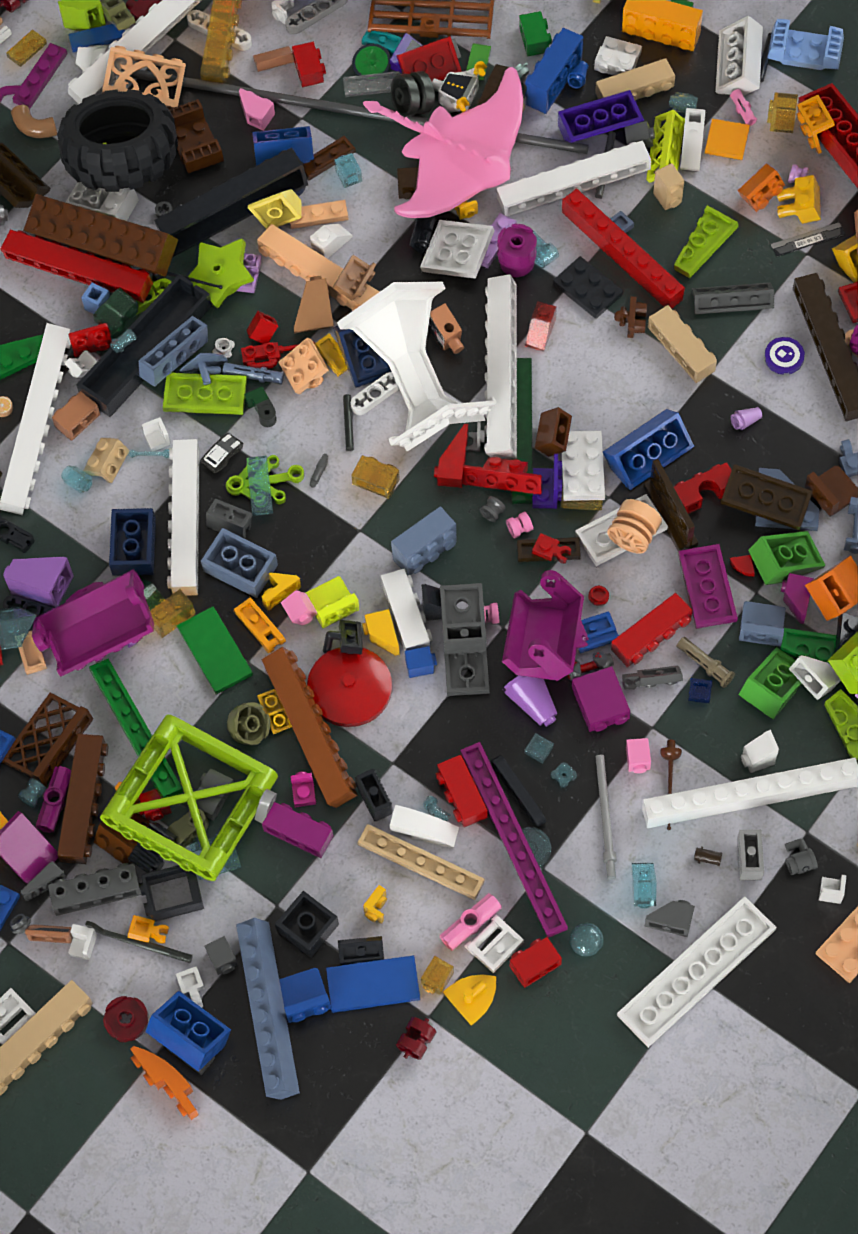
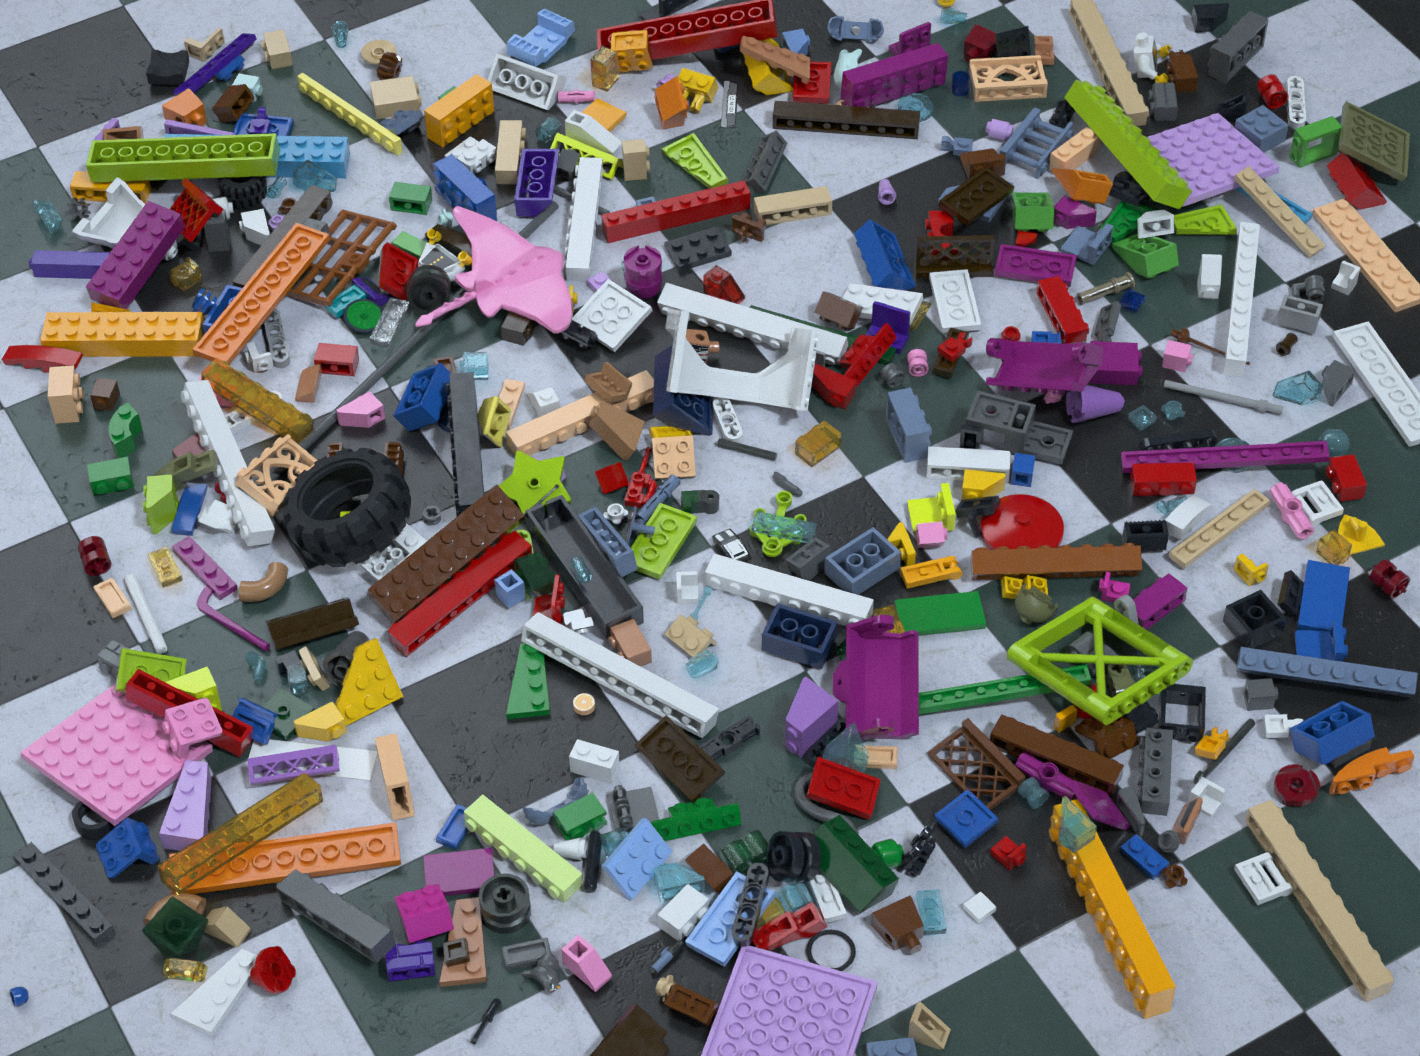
camera: 70 degrees left, 15 degrees down
(634, 526) = (967, 279): light nougat wheel -> none
(784, 355) = (836, 152): dark purple tile -> none

